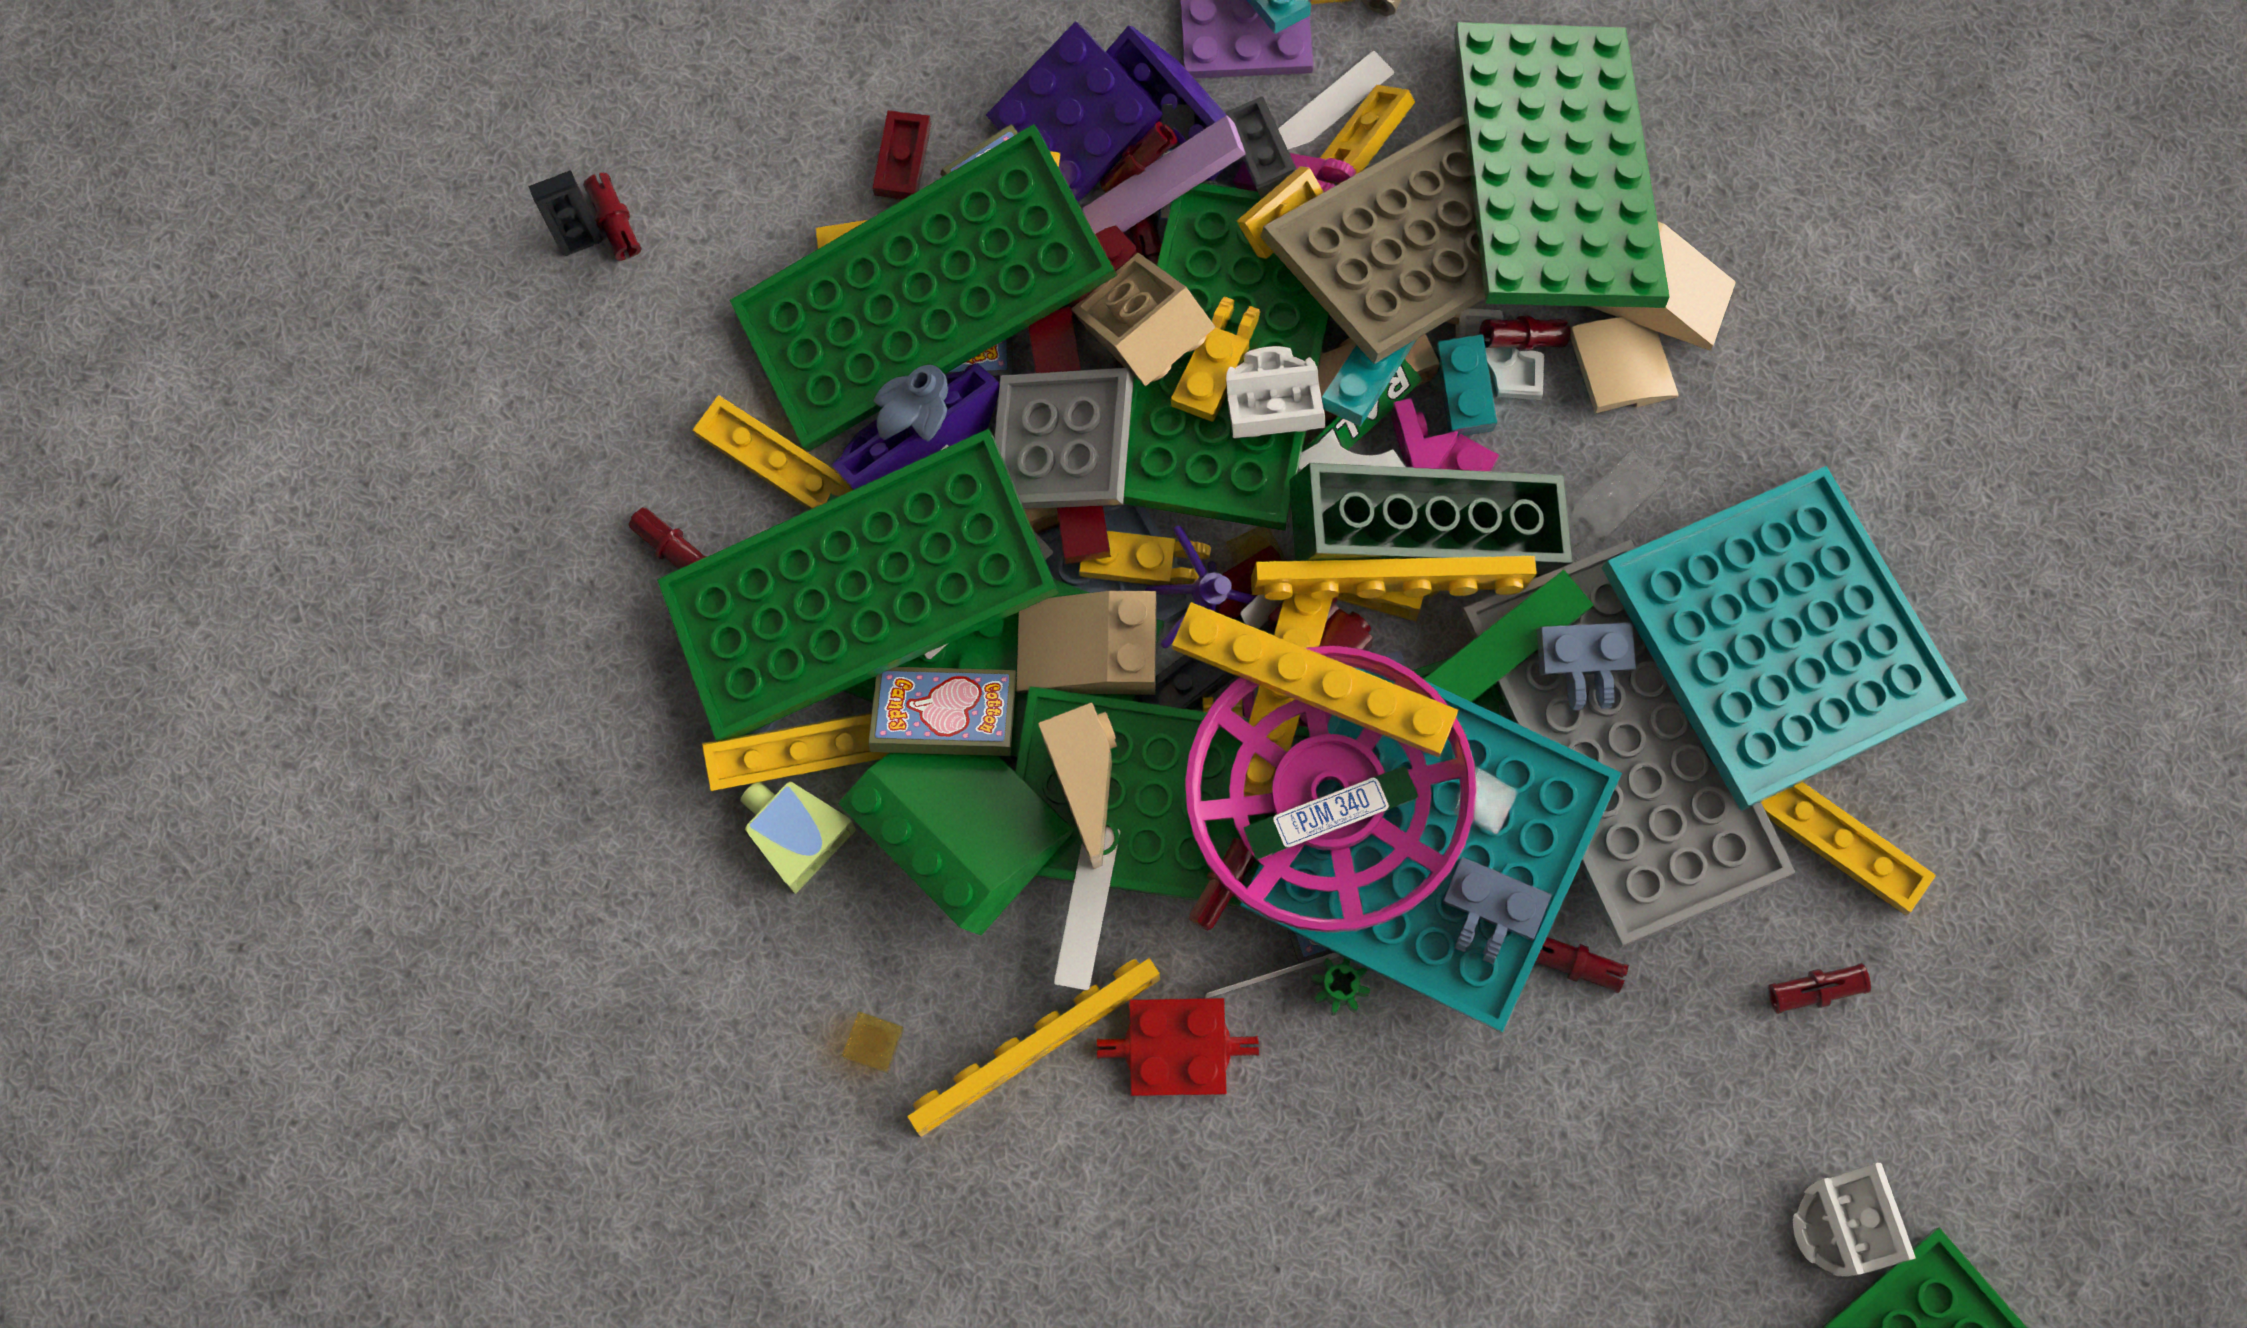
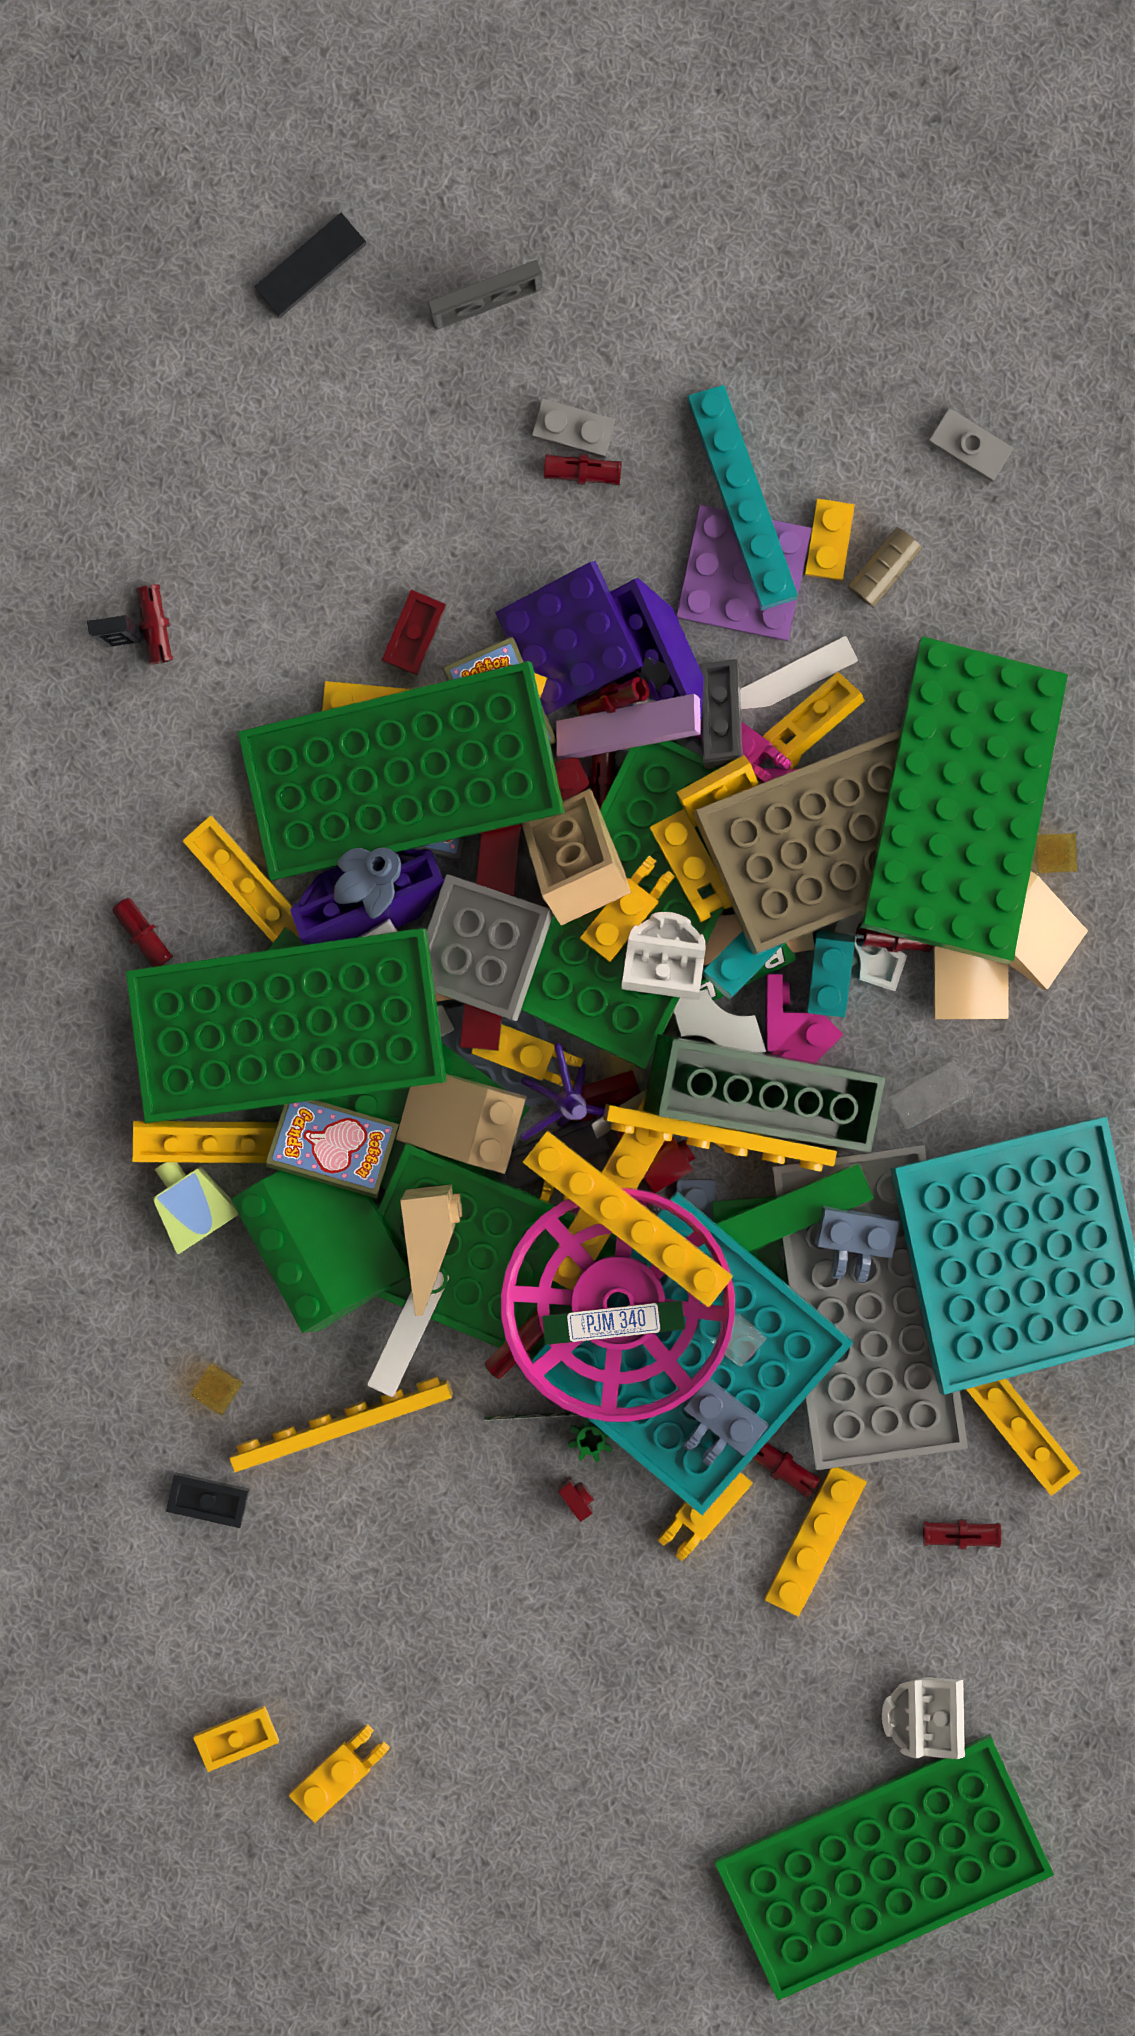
camera: 10 degrees right, 15 degrees up
(892, 1183) = (207, 1500): none -> black plate
(1178, 1047) = (452, 1451): red plate -> none
(1277, 296) = (690, 863): none -> yellow plate
(1343, 1062) = (577, 1498): none -> dark red plate
(1503, 1050) = (703, 1524): none -> yellow hinge
(1645, 1043) = (815, 1540): none -> yellow plate
(1677, 206) = (1056, 853): none -> clear yellow plate

